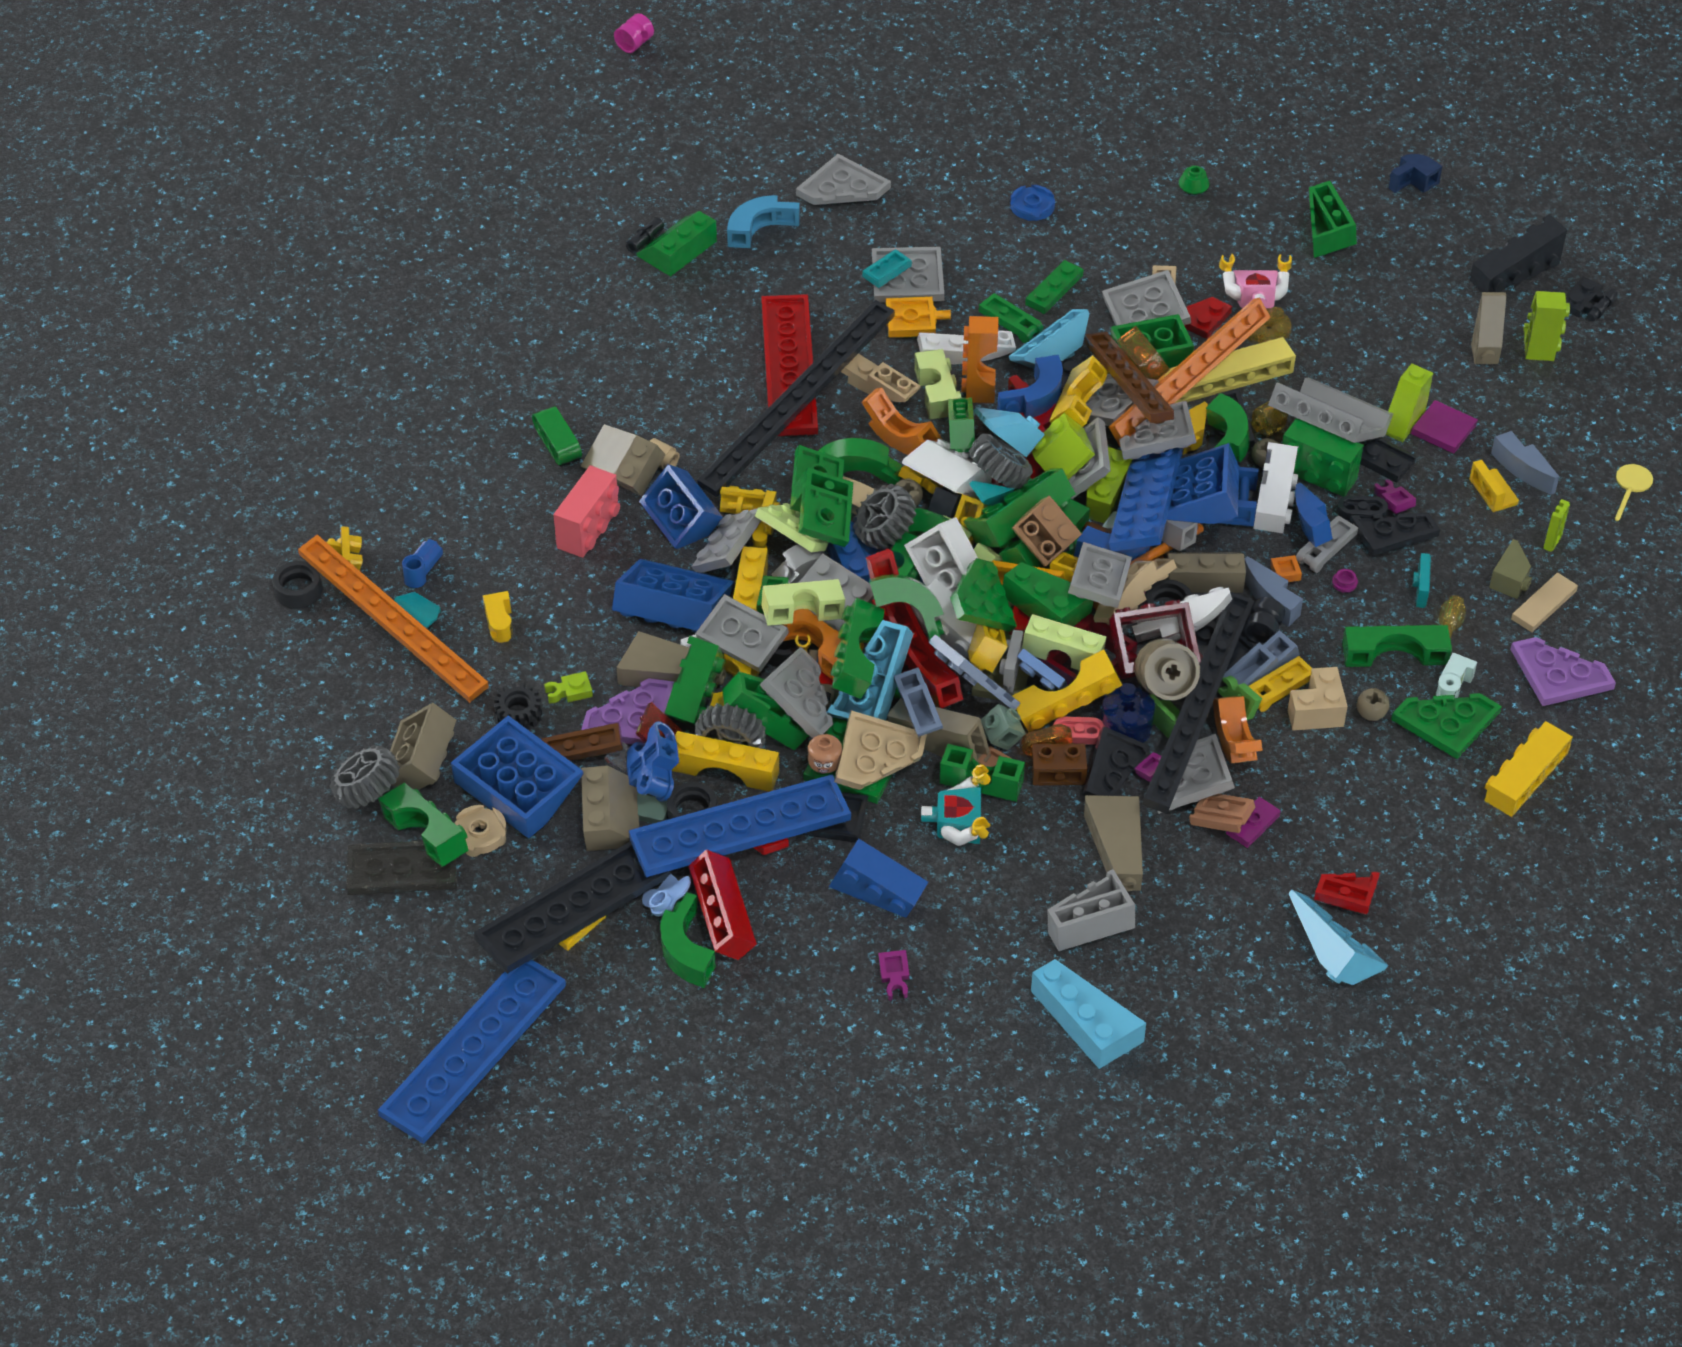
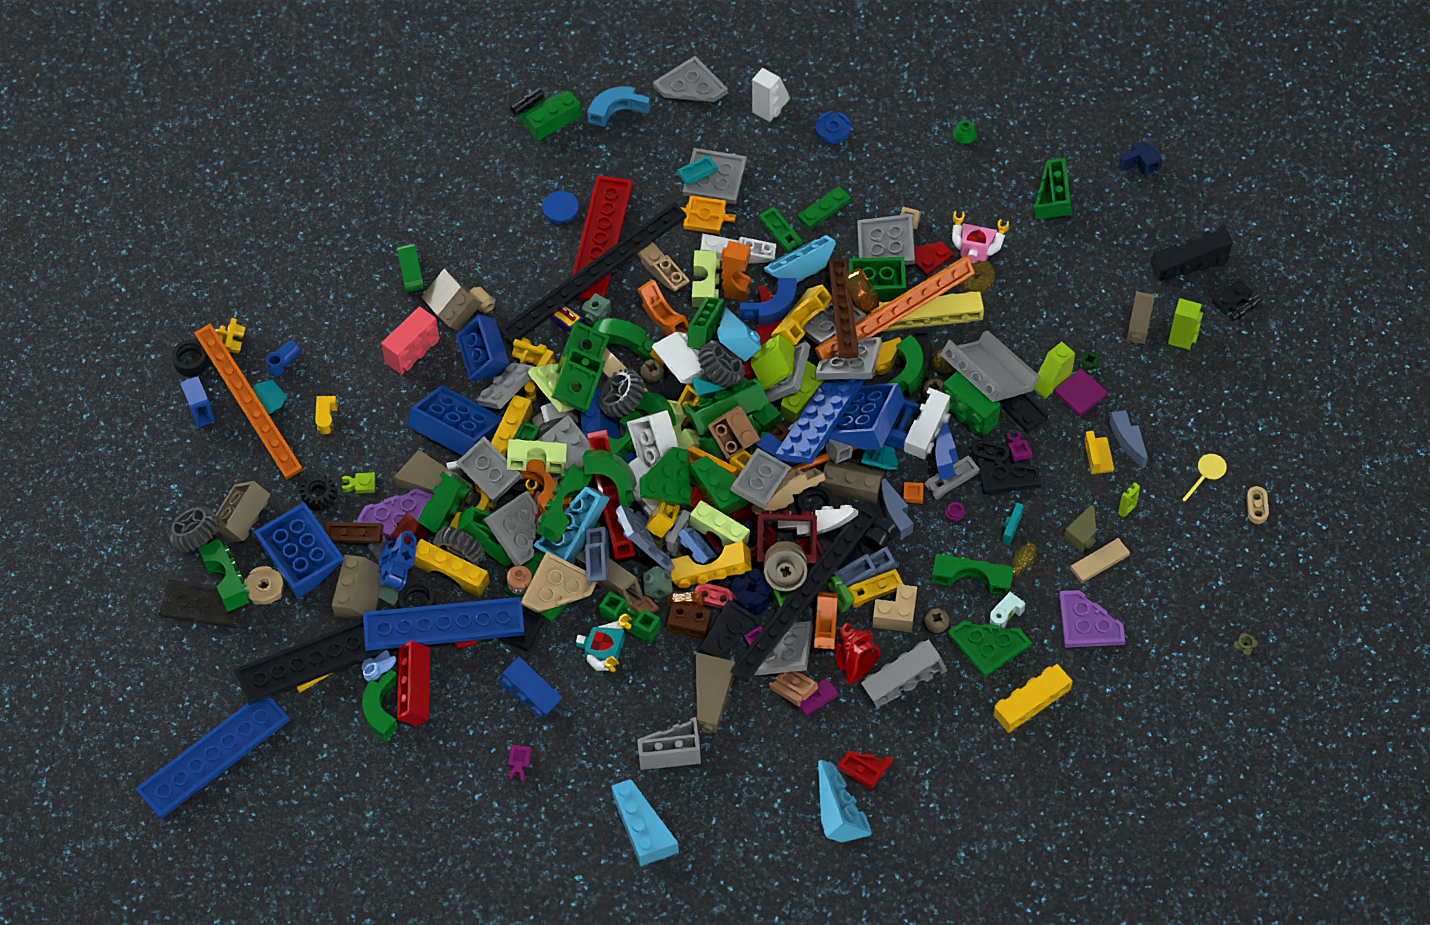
camera: 15 degrees right, 10 degrees up
(324, 631) = (197, 401): none -> blue slope
(725, 339) = (560, 207): none -> blue tile
(777, 454) = (566, 318): none -> slope
(813, 434) = (596, 309): none -> sand green brick
(946, 174) = (768, 95): none -> white wedge
(1227, 538) = (881, 458): none -> teal slope
(1284, 759) = (855, 653): none -> red helmet
(1358, 769) = (904, 673): none -> light grey wedge
(1443, 391) = (1088, 367): none -> dark green wheel

